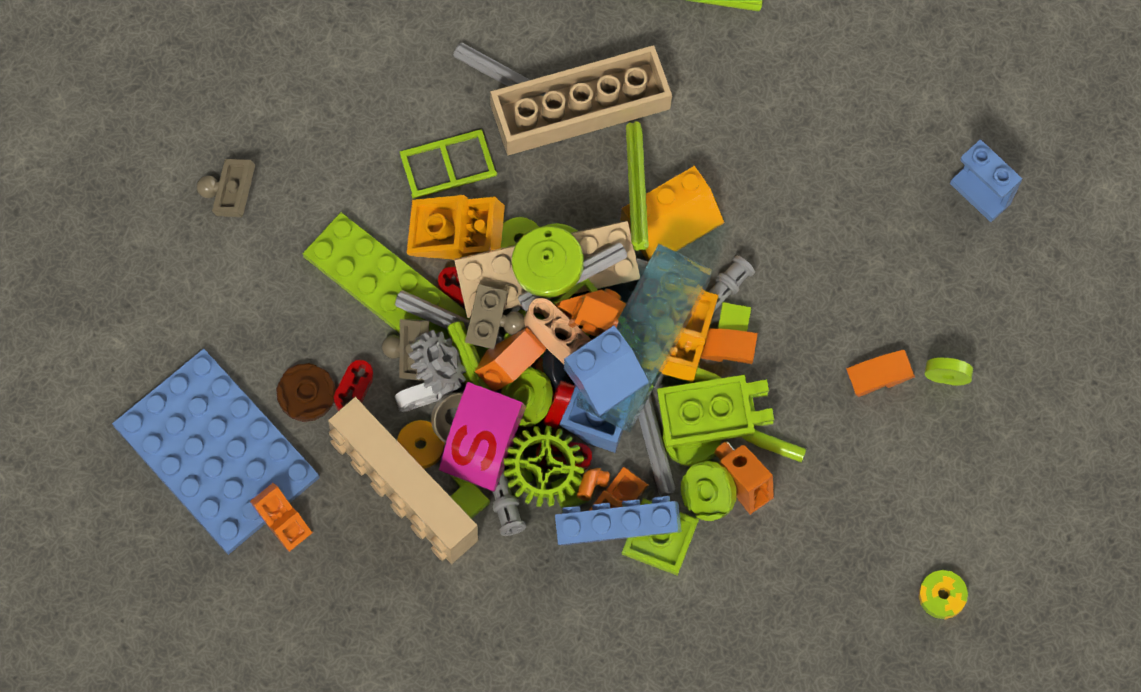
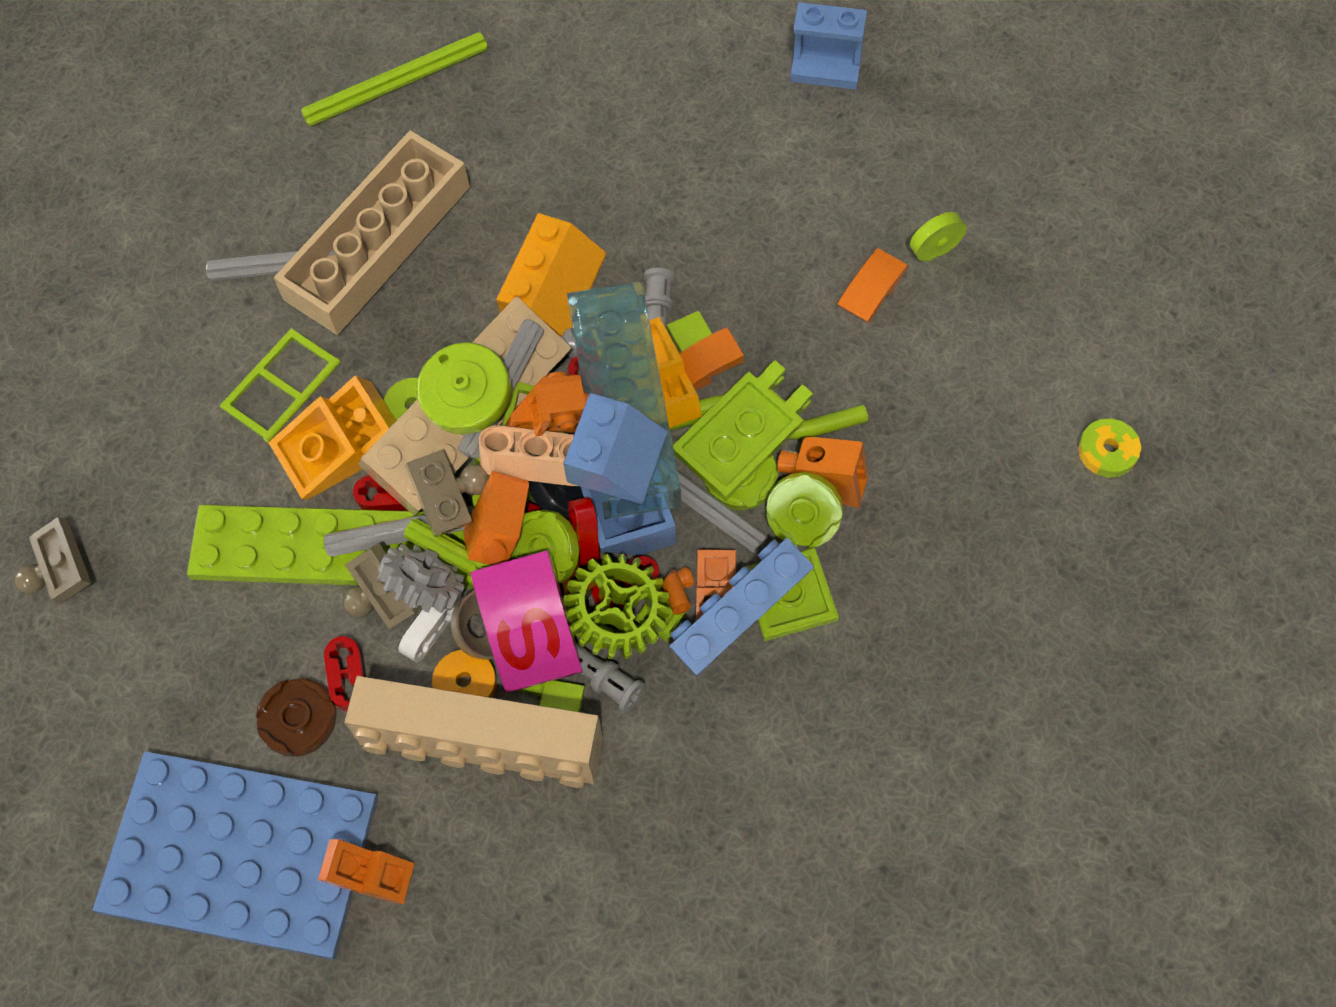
camera: 30 degrees left, 5 degrees down
(637, 188) = (498, 268): lime axle -> none

